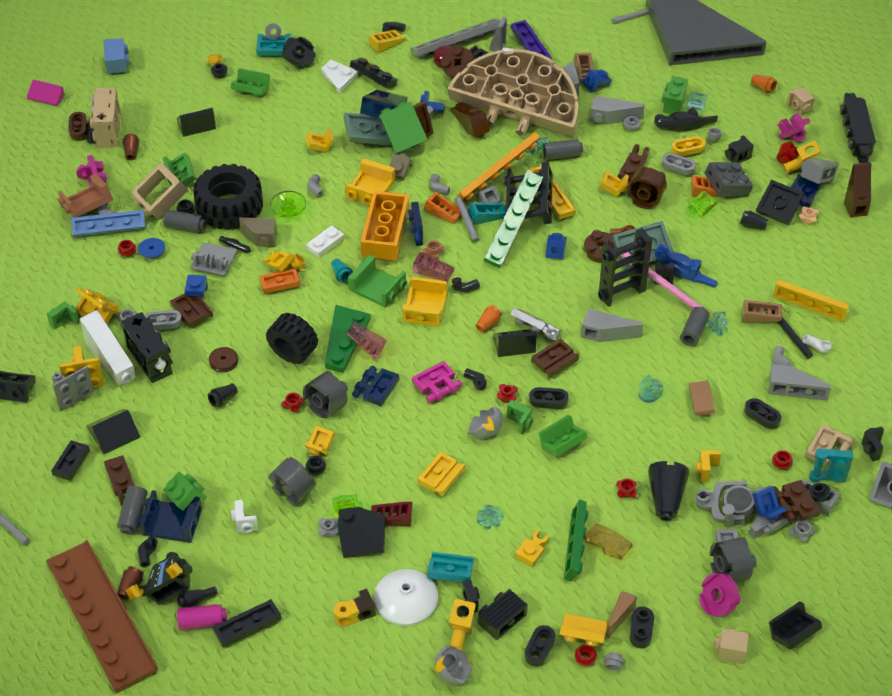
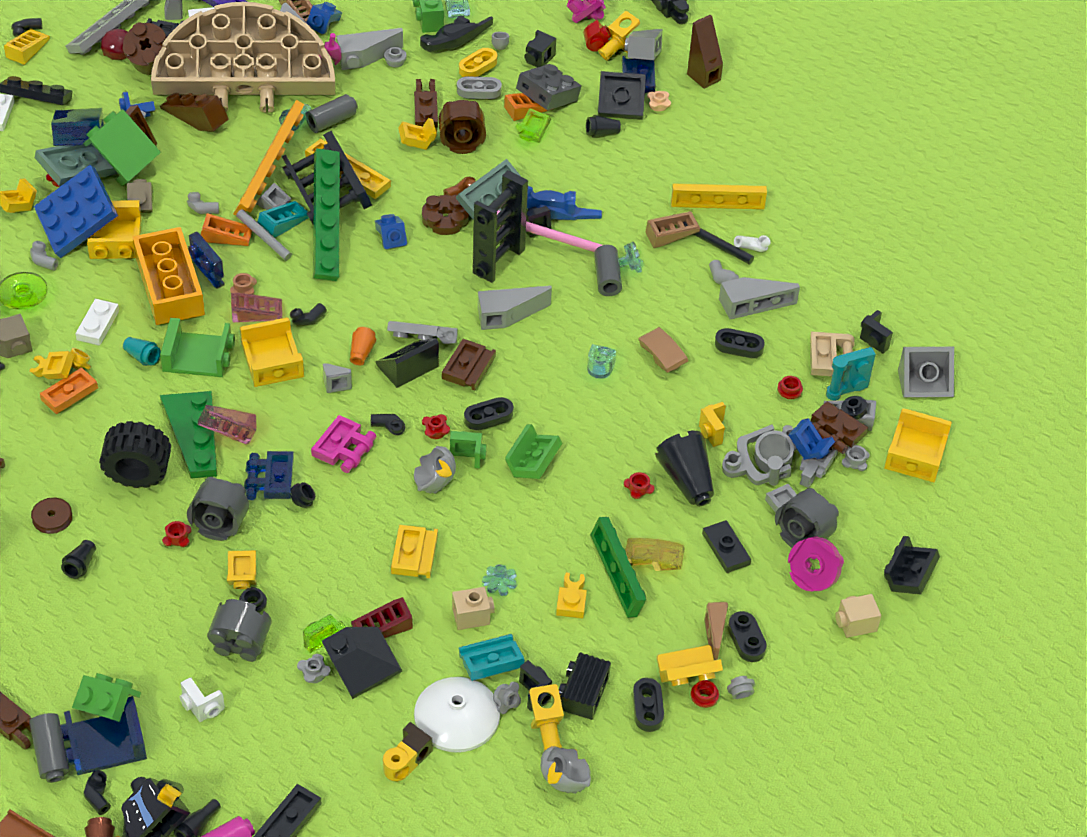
camera: 30 degrees left, 0 degrees up
(350, 161) = (75, 211): none -> blue plate
(388, 406) = (302, 495): none -> black plate
(442, 595) = (507, 697): none -> light grey plate
(456, 528) = (472, 608): none -> tan brick
(457, 335) = (336, 378): none -> light grey slope
(585, 105) = (333, 49): none -> dark pink hand
(665, 557) = (726, 546): none -> black plate
(856, 539) = (918, 445): none -> yellow panel

